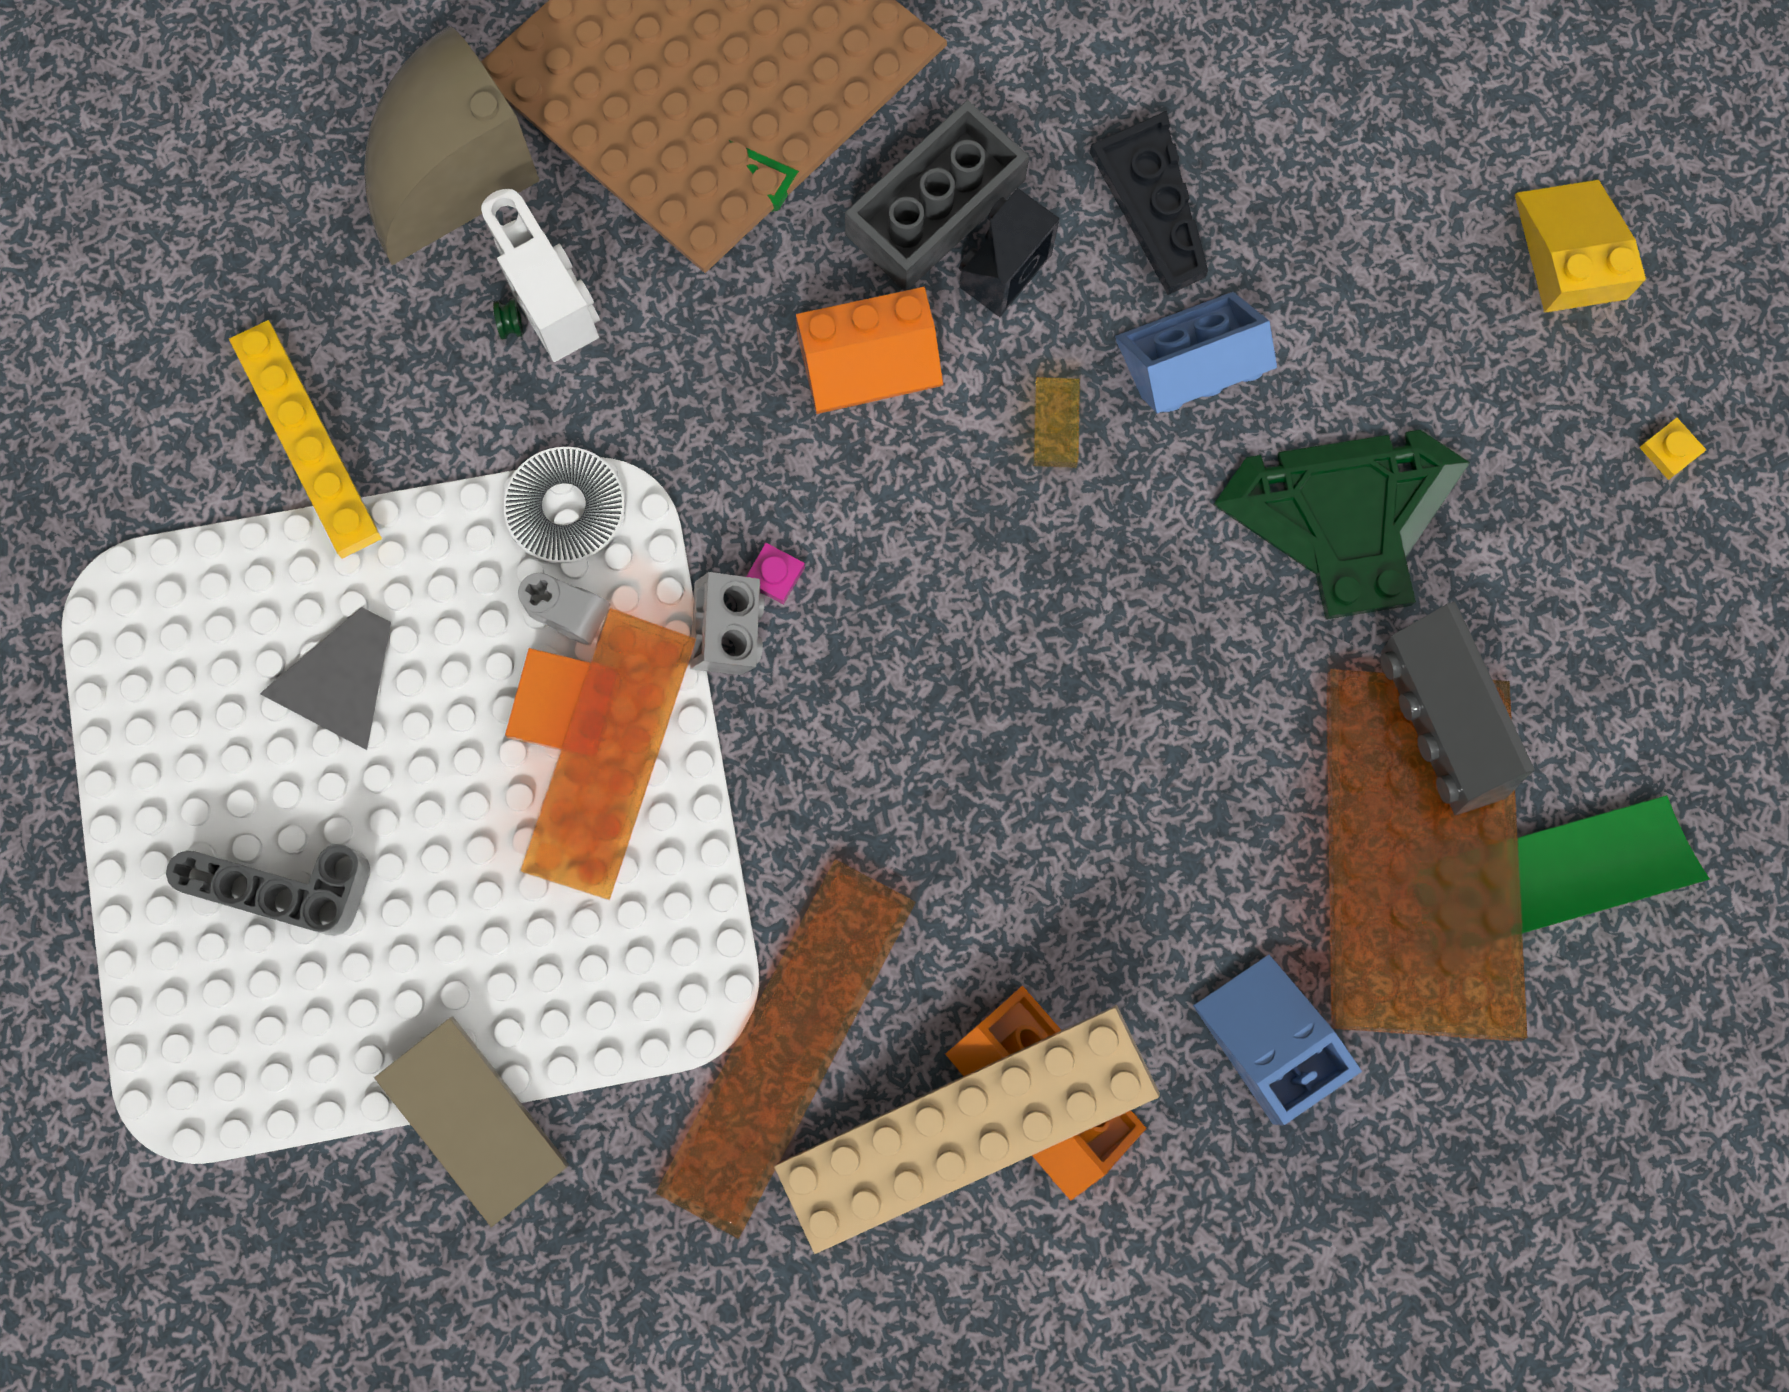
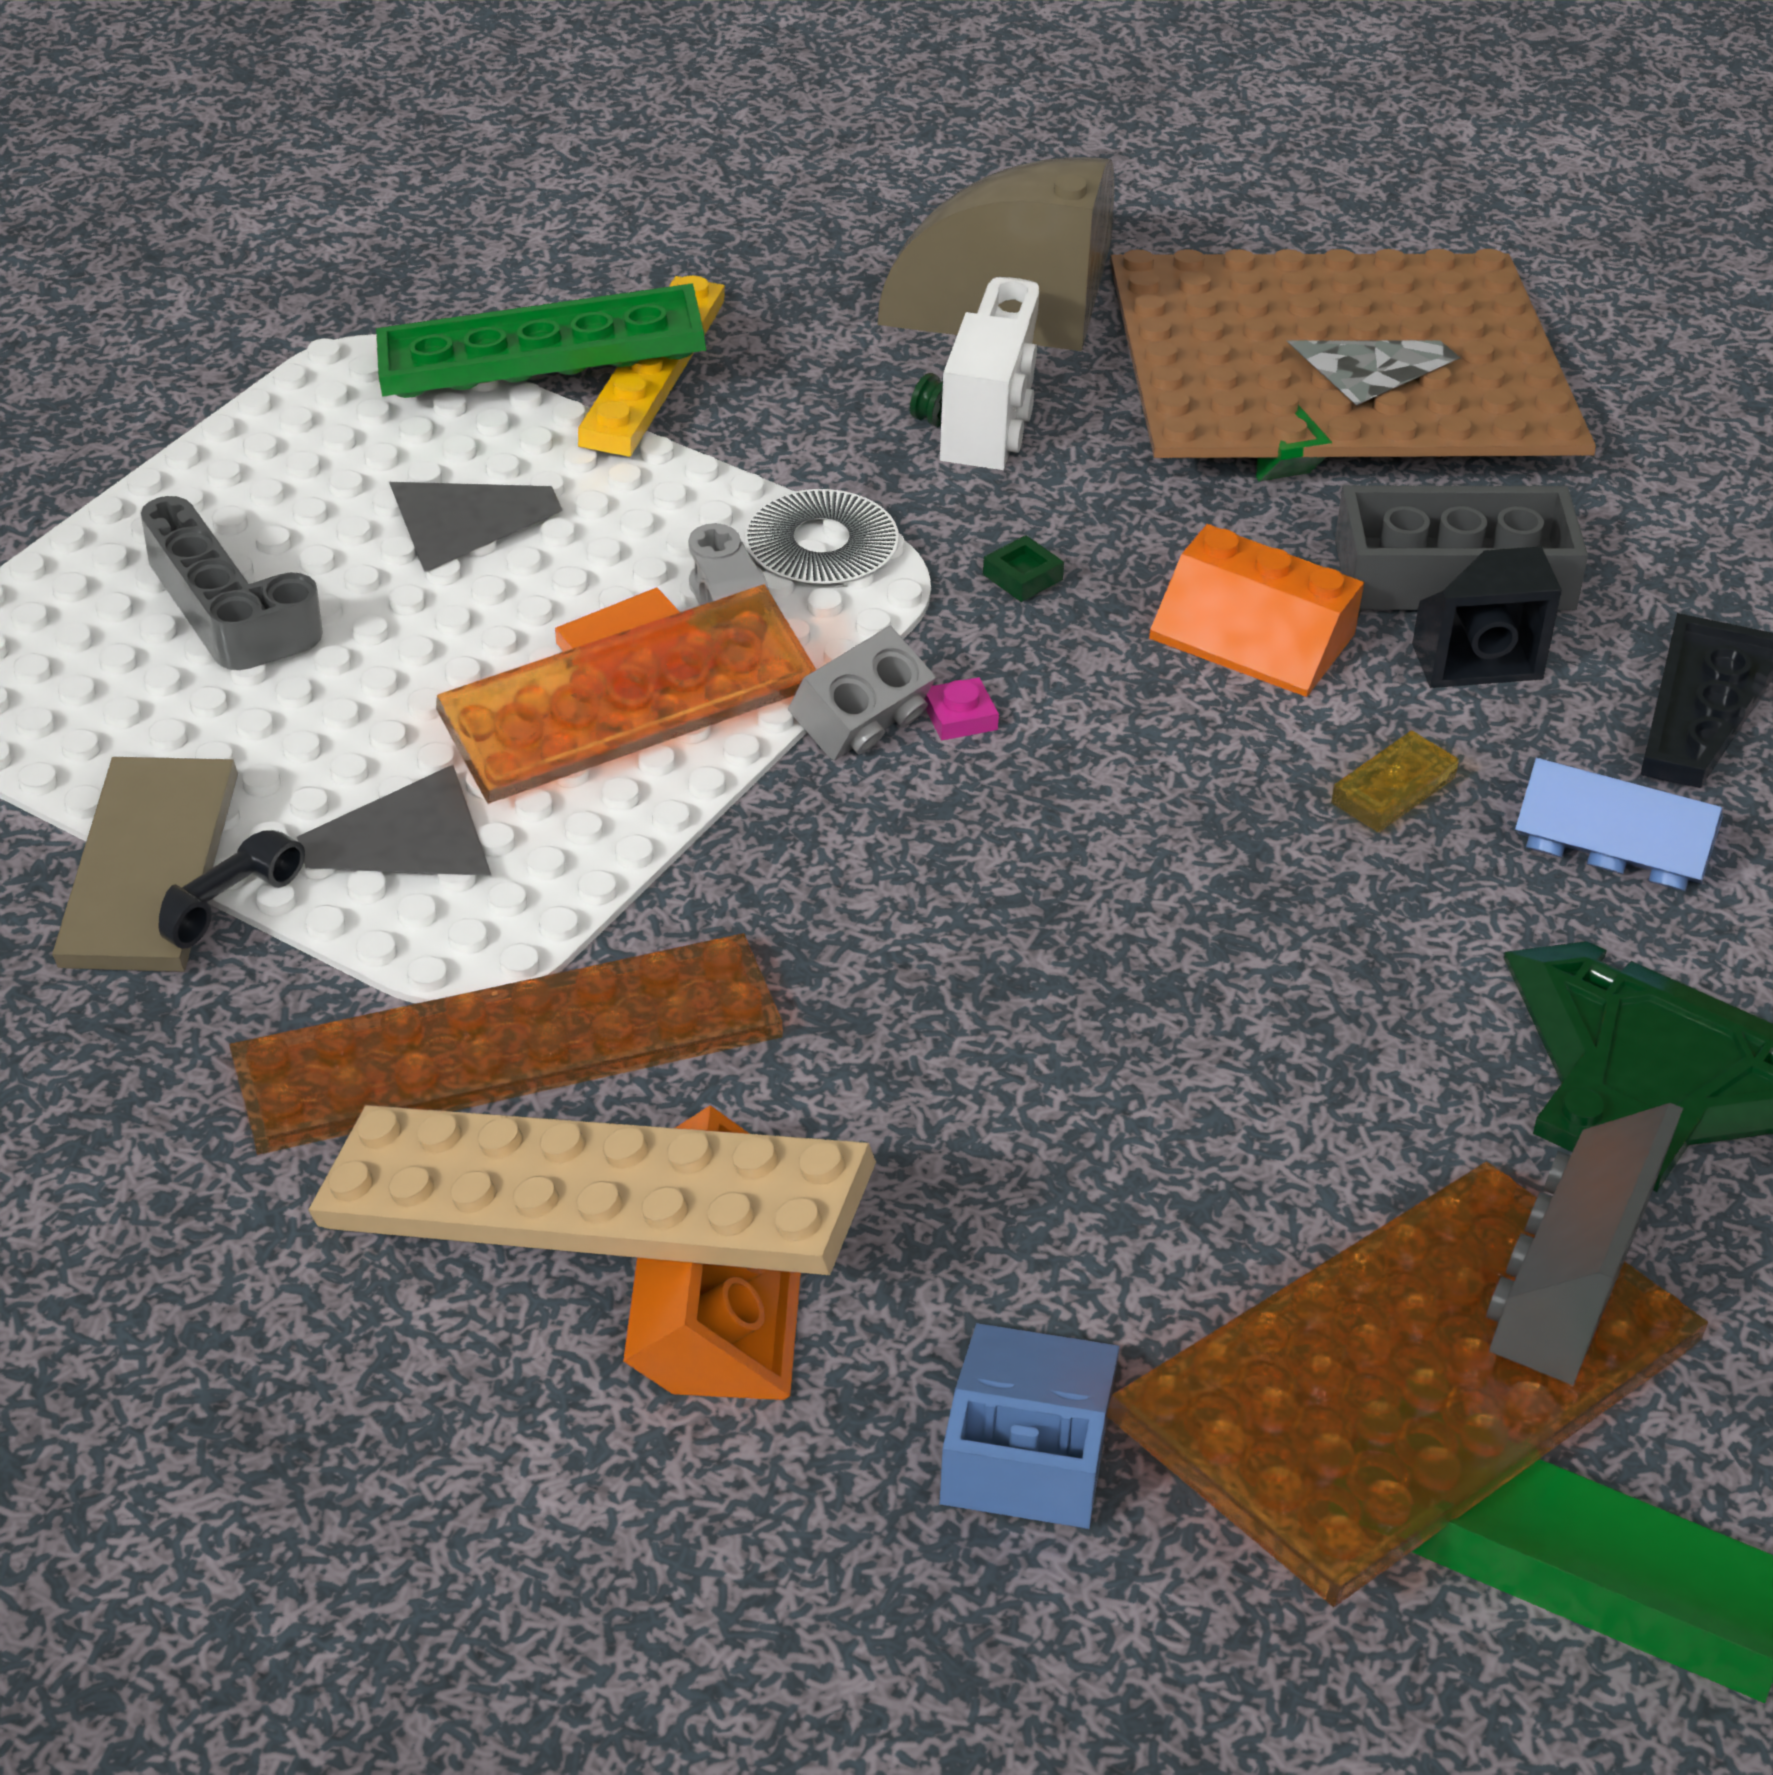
camera: 45 degrees right, 35 degrees down
(230, 499) = (539, 340): none -> green plate
(548, 1148) = (265, 854): none -> black bar
(581, 962) = (409, 830): none -> flat silver sticker
(703, 426) = (1023, 568): none -> dark green plate
(752, 67) = (1373, 366): none -> sticker

